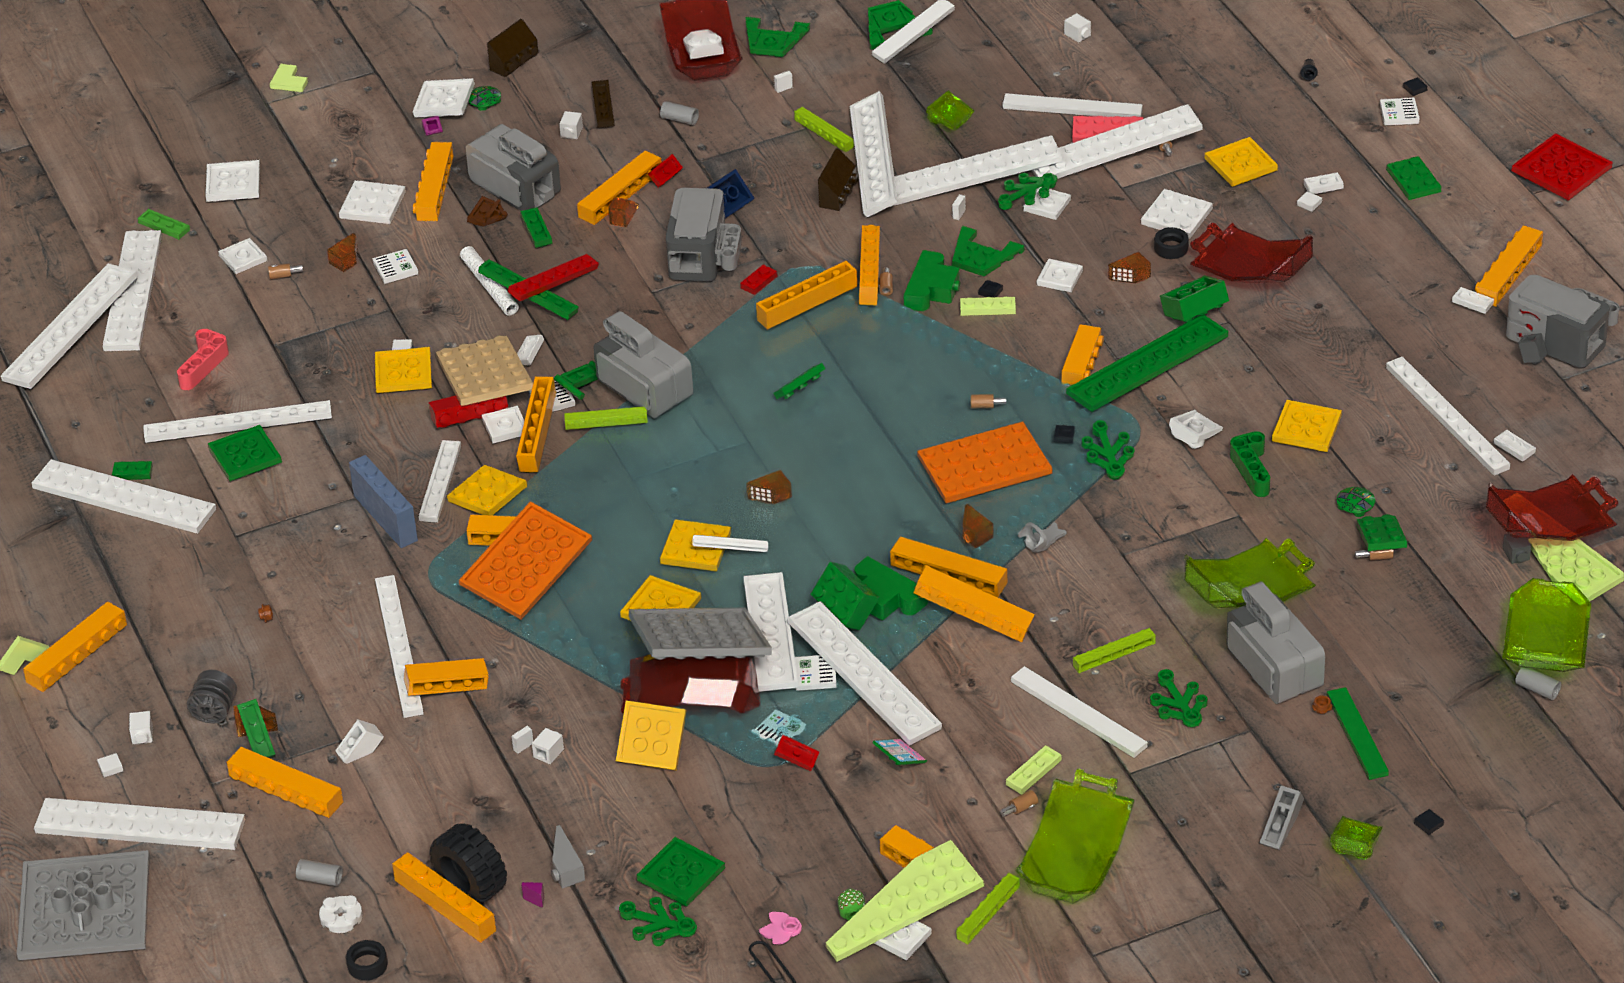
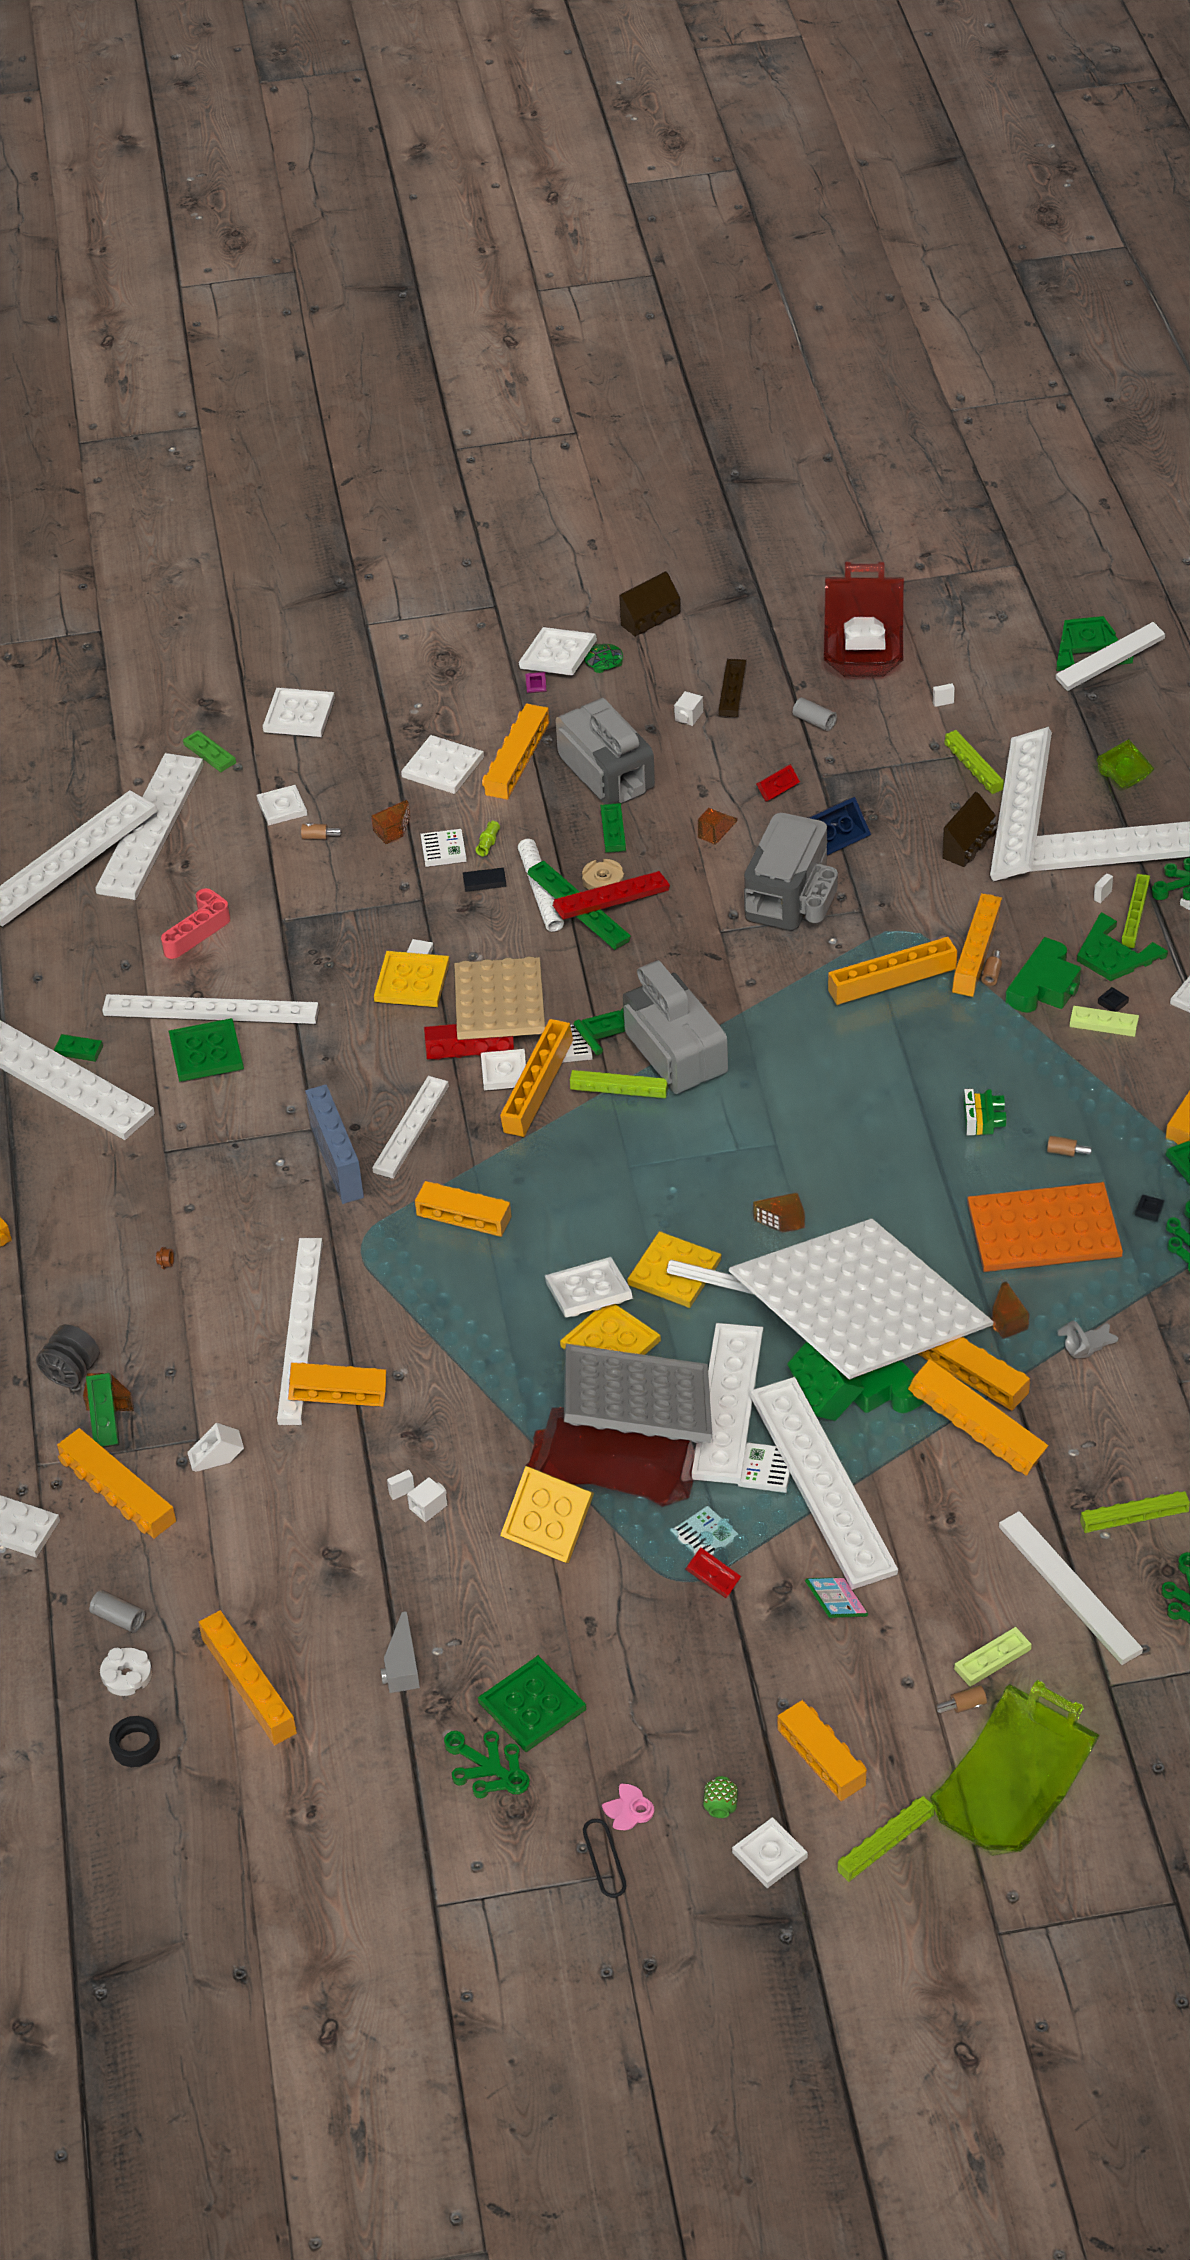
camera: 15 degrees right, 5 degrees up
(286, 80) = (394, 600): yellowish green tile -> none
(431, 252) = (487, 838): none -> lime pin
(439, 284) = (484, 879): none -> black tile
(469, 862) = (280, 1645): black tyre -> none
(486, 212) = (564, 799): reddish brown slope -> none
(487, 490) = (458, 1150): yellow plate -> none
(525, 560) = (470, 1252): orange plate -> none
(530, 348) = (559, 980): white plate -> none
(532, 264) = (593, 870): none -> tan plate
(533, 892) = (352, 1694): magenta slope -> none
(620, 185) = (718, 794): light orange brick -> none
(631, 568) = (588, 1287): none -> white plate
(758, 279) = (846, 938): red plate -> none
(772, 41) = (946, 643): green wing -> none
(800, 381) = (854, 1080): green plate -> none
(856, 534) = (860, 1298): none -> white baseplate
(911, 387) = (980, 1113): none -> green hips
(915, 892) = (804, 1799): yellowish green wing -> none
(990, 219) = (1135, 910): none -> lime piece

